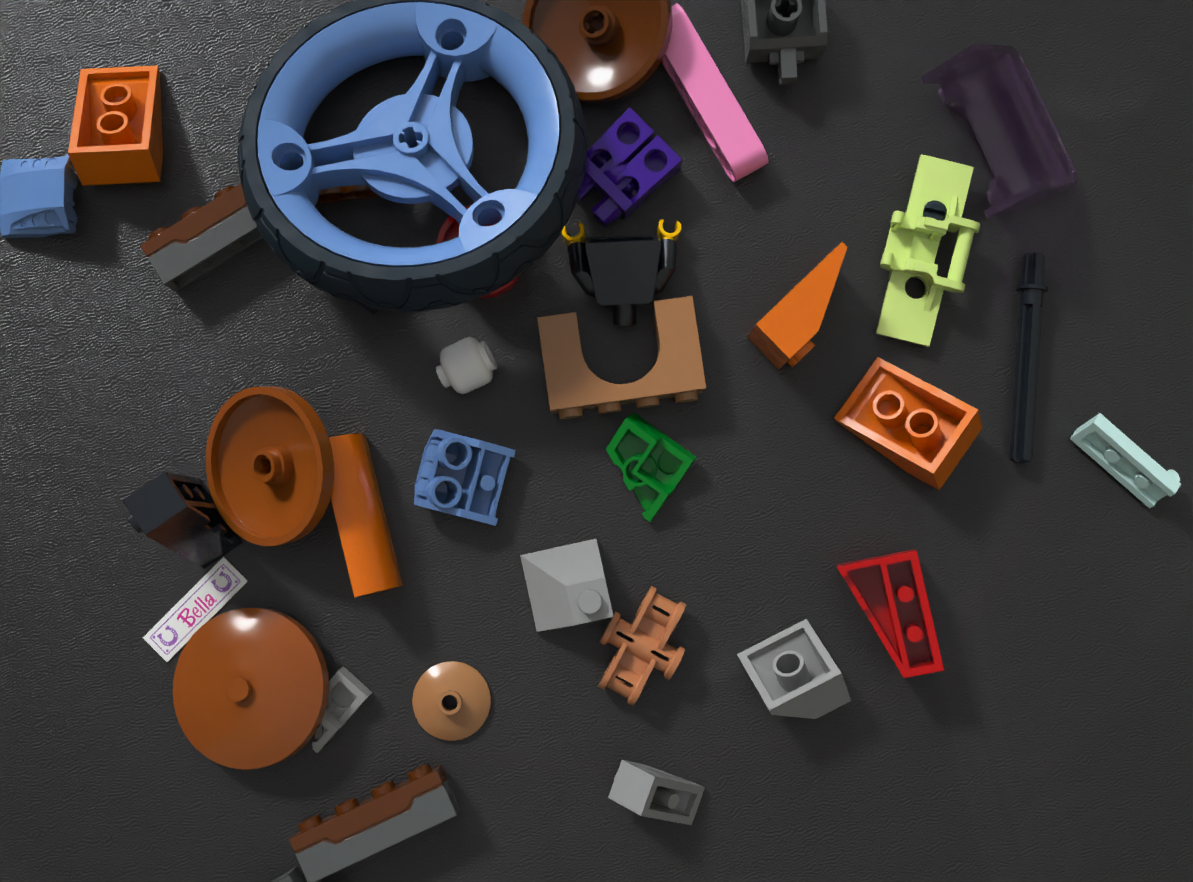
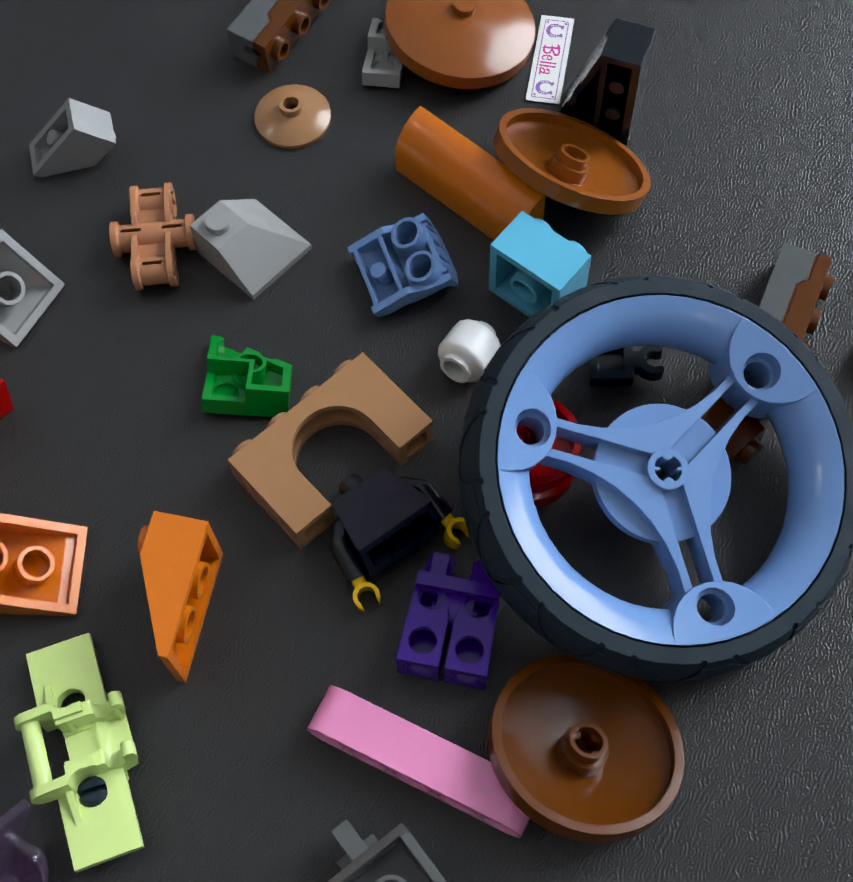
camera: 150 degrees right, 20 degrees down
(367, 386) = (535, 265): none -> medium azure brick

